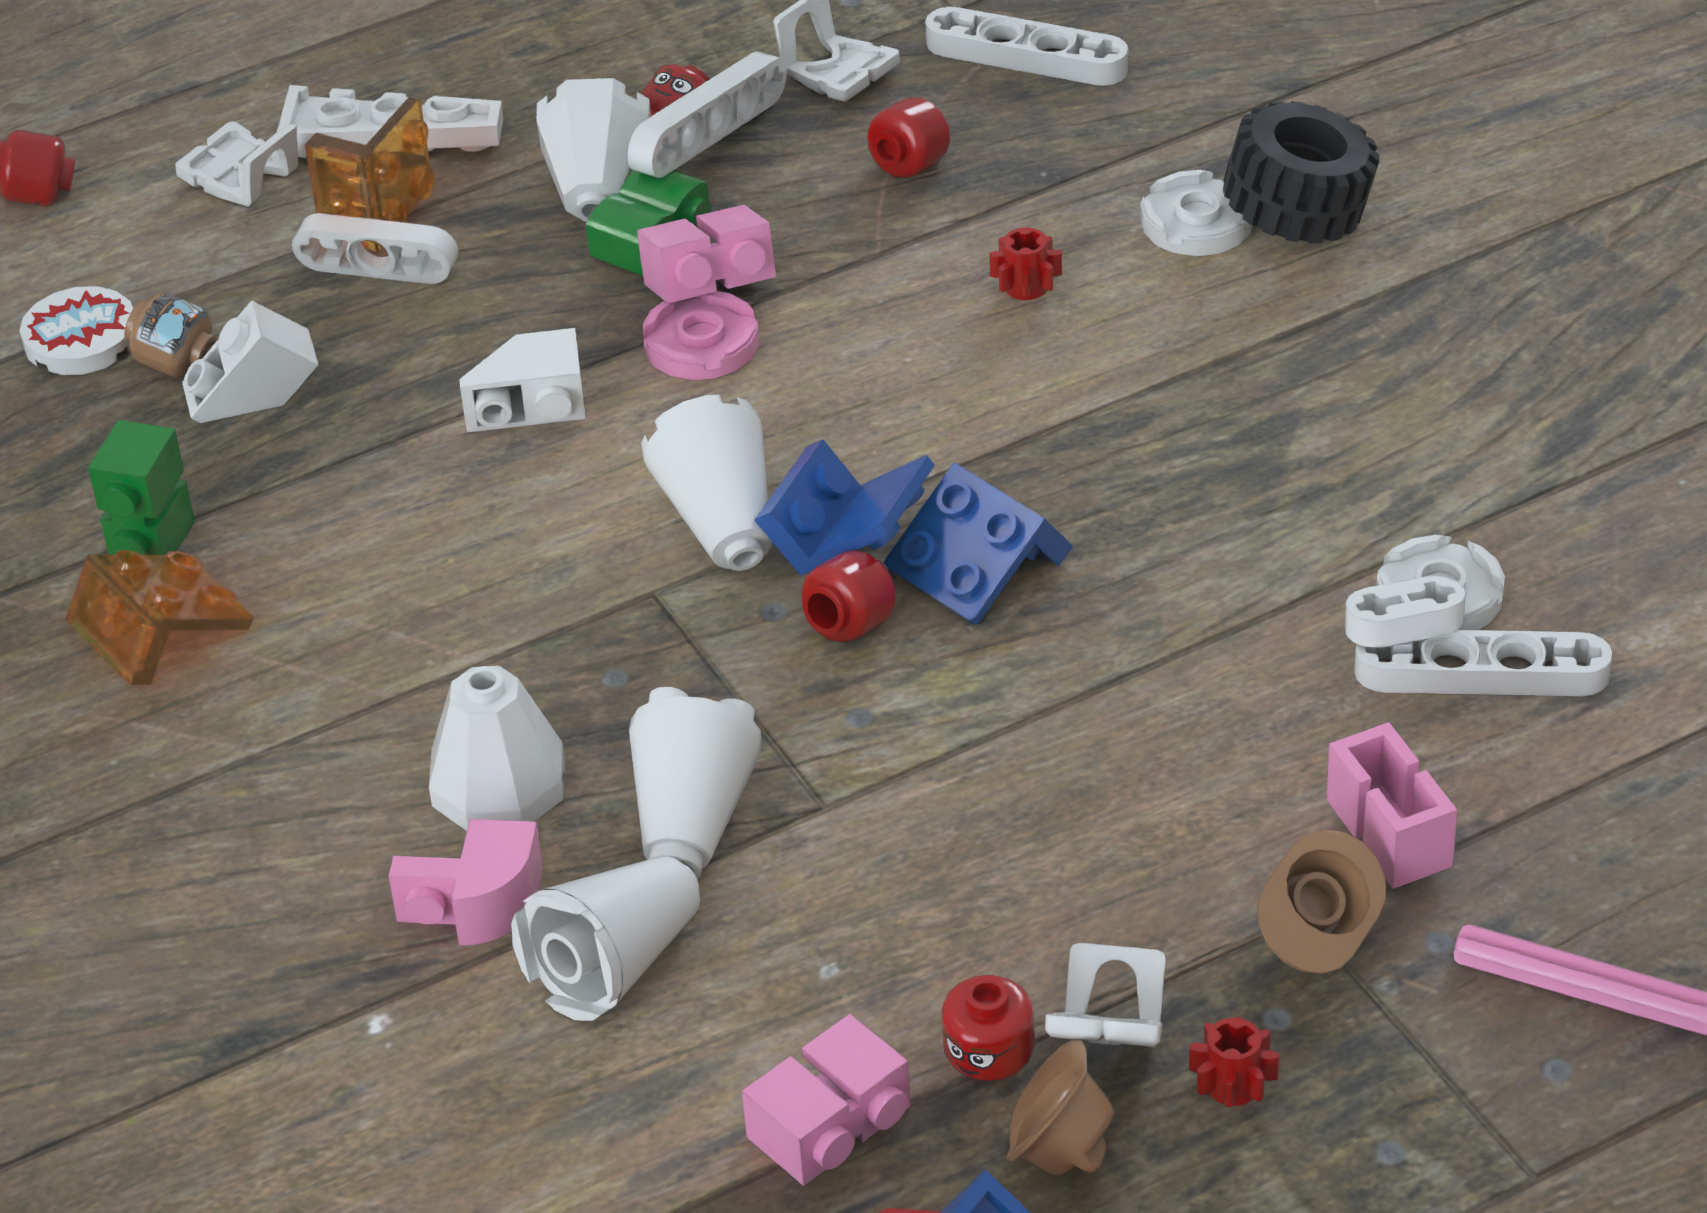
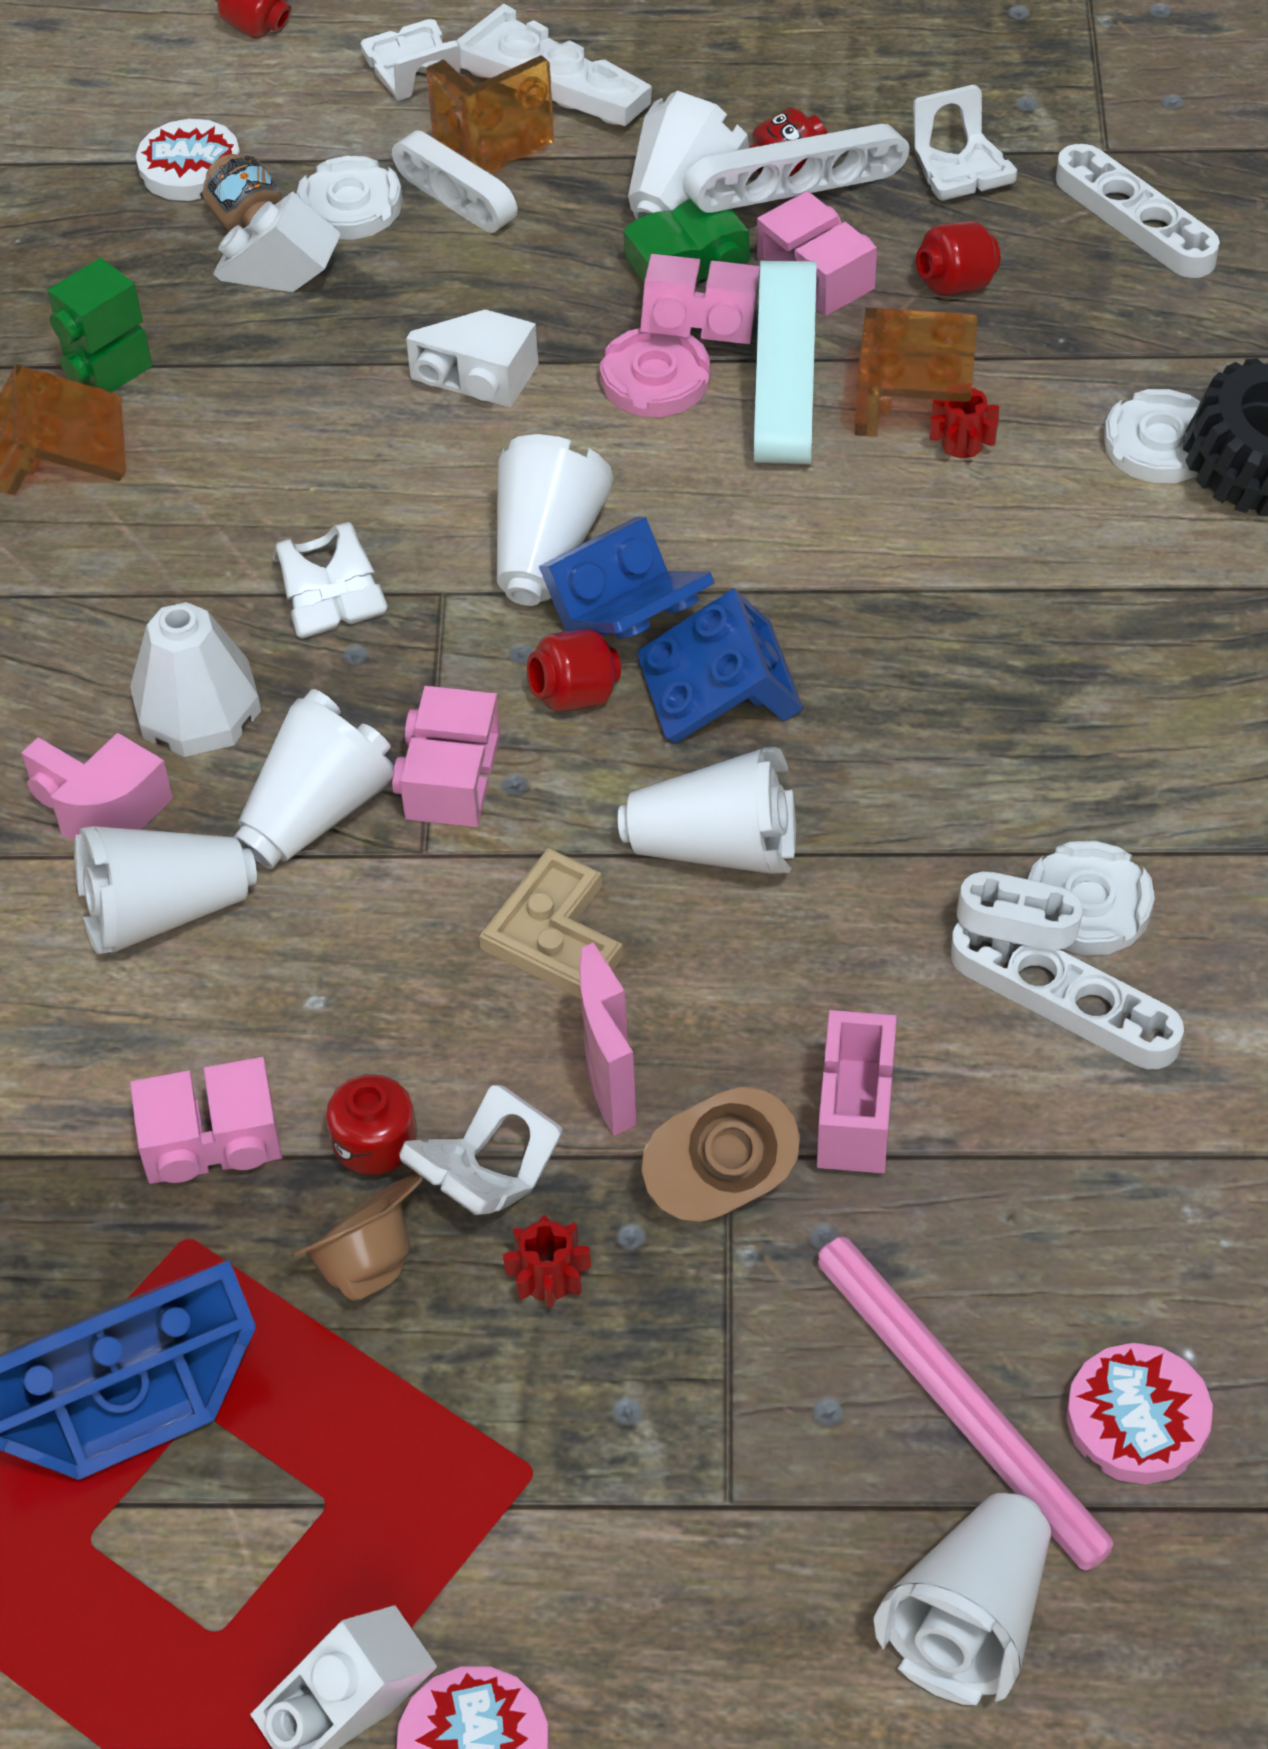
camera: 30 degrees right, 10 degrees up
(295, 293) = (353, 195): none -> white tile
(556, 631) = (332, 593): none -> white piece
(757, 166) = (814, 232): none -> bright pink piece
(800, 721) = (449, 747): none -> bright pink piece
(833, 272) = (785, 362): none -> light aqua beam
(940, 225) = (912, 358): none -> clear orange bracket
(991, 822) = (540, 927): none -> tan tile
(1085, 650) = (717, 816): none -> white cone
(1148, 863) = (606, 1041): none -> bright pink slope

